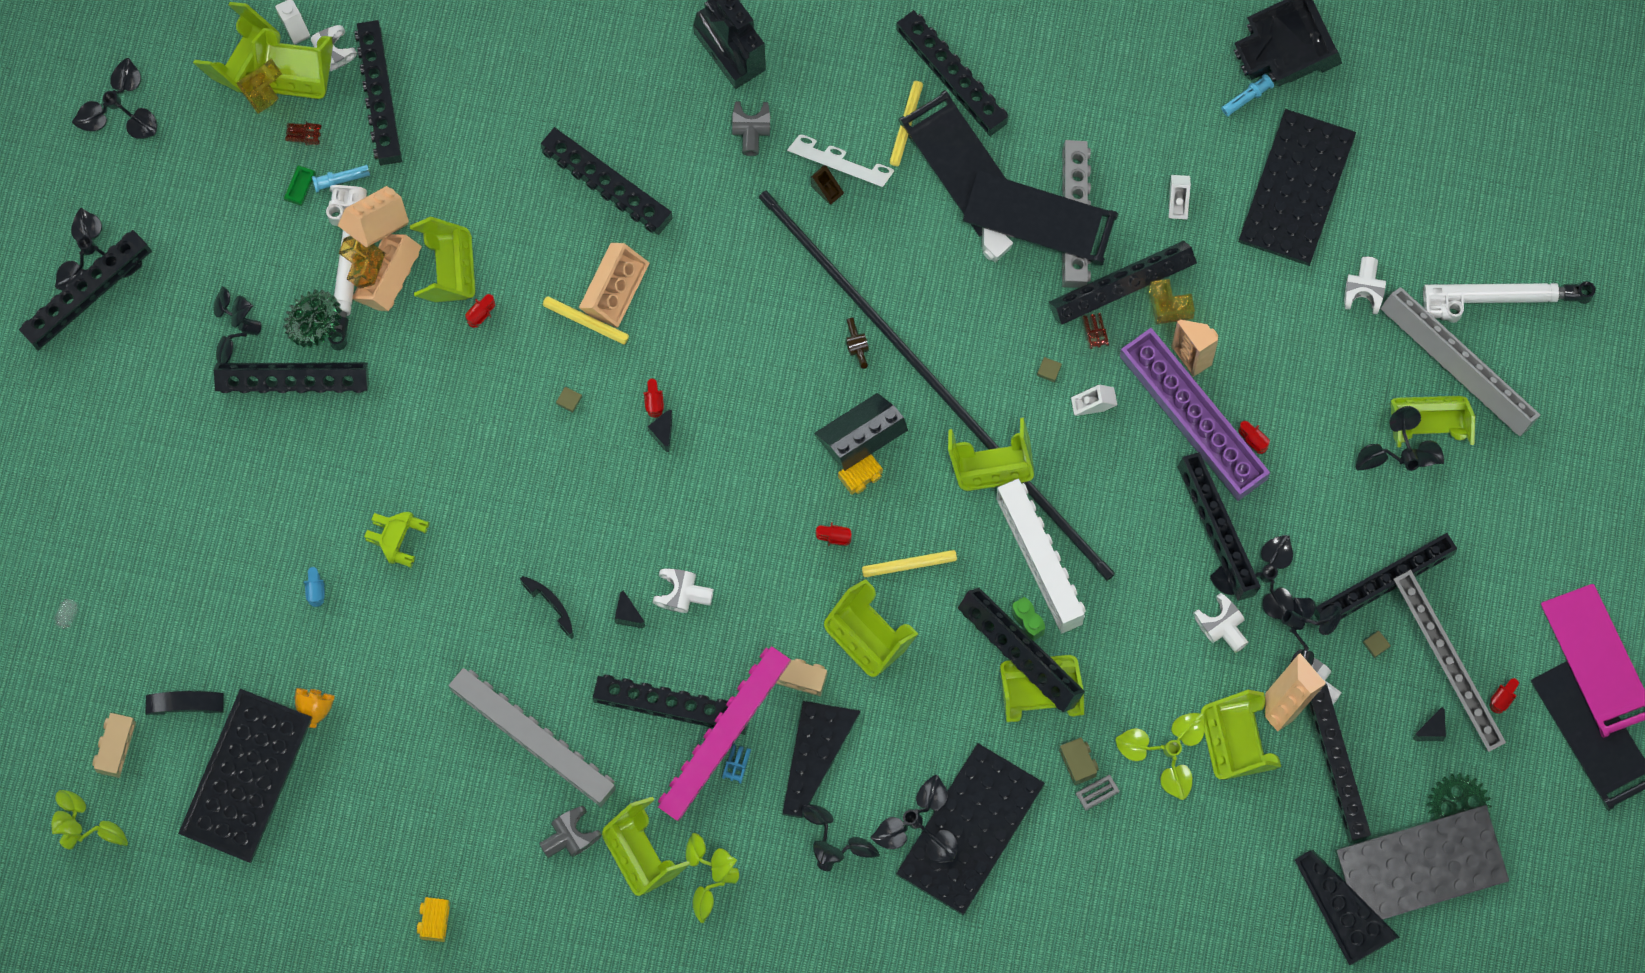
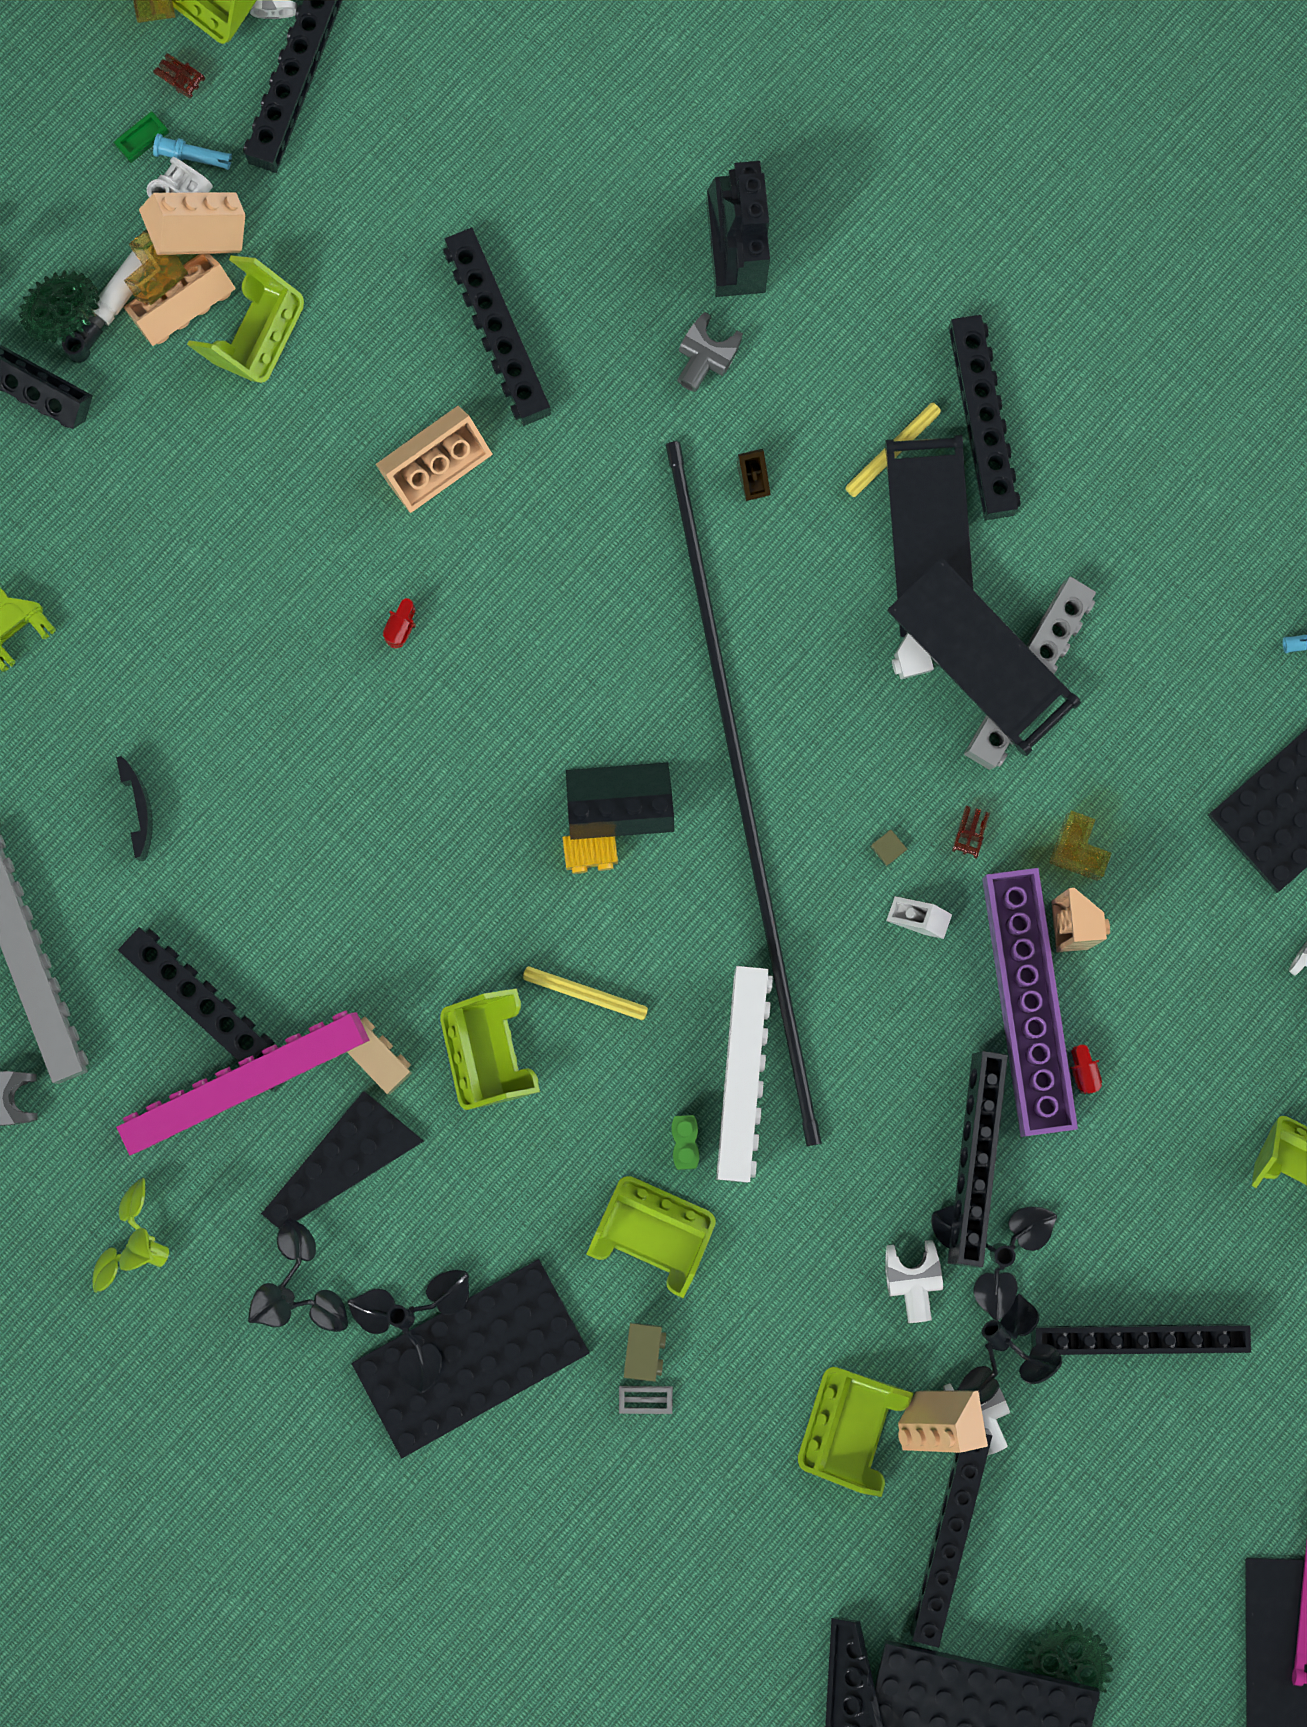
camera: 25 degrees right, 10 degrees up
(480, 311) = (260, 404): red arm -> none
(568, 399) = (302, 569): olive tile -> none
(585, 320) = (377, 483): light yellow axle -> none
(627, 614) = (220, 866): black slope -> none
(634, 851) = (64, 1166): lime windscreen -> none
(661, 430) = (388, 668): black slope -> none
(683, 591) = (301, 879): white connector -> none
(736, 765) = (240, 1125): dark azure arm -> none
(834, 535) = (517, 909): red arm -> none
(836, 161) = (780, 454): white piece -> none
(857, 343) = (677, 689): dark brown piece -> none
(992, 466) = (750, 930): lime windscreen -> none
(1021, 650) = (651, 1180): black brick -> none
(1122, 282) = (1038, 790): black brick -> none
(1174, 780) = (747, 1438): lime plant -> none
(1179, 197) = (1168, 721): white slope -> none
(1376, 644) = (1085, 1408): olive tile -> none
(1403, 419) = (1259, 1209): black plant -> none
(1433, 729) = (1094, 1552): black slope -> none
(1449, 660) = (1159, 1489): light grey brick -> none
(1504, 696) = (1202, 1563): red arm -> none

